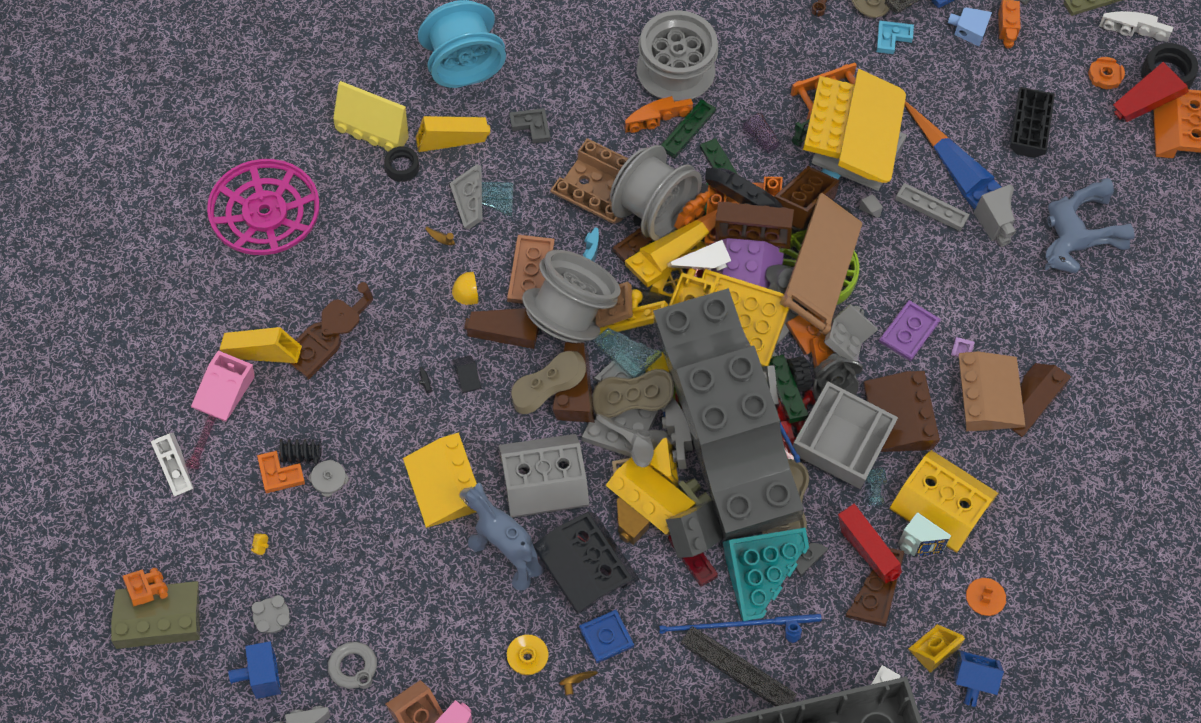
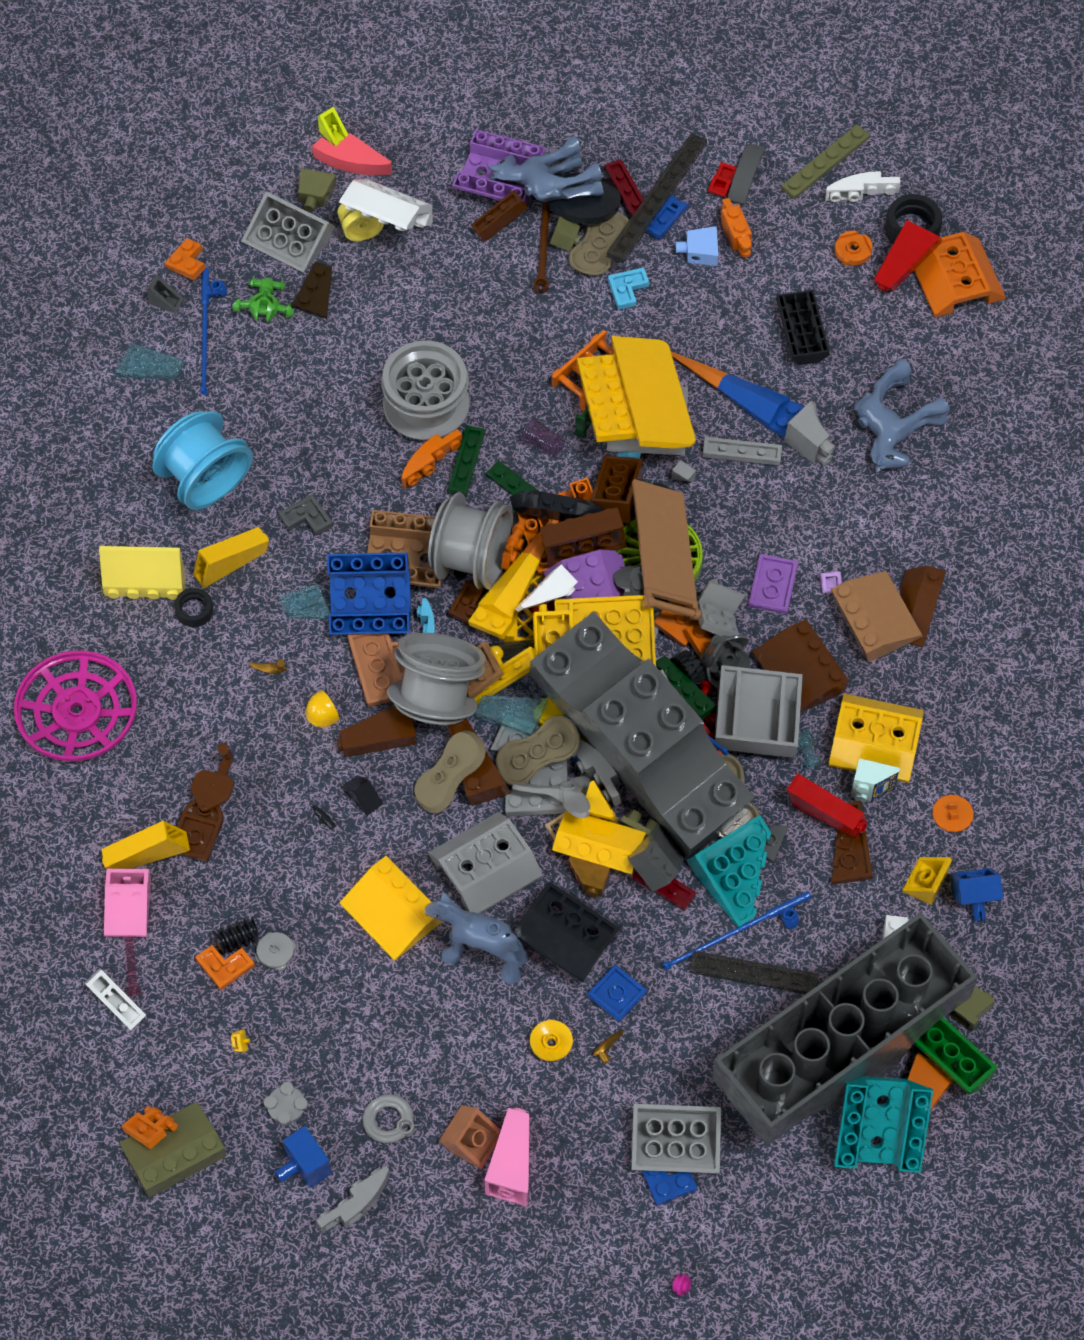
camera: 20 degrees left, 0 degrees up
(468, 196) = (279, 615): light grey wing -> none
(548, 219) = (370, 609): none -> blue slope

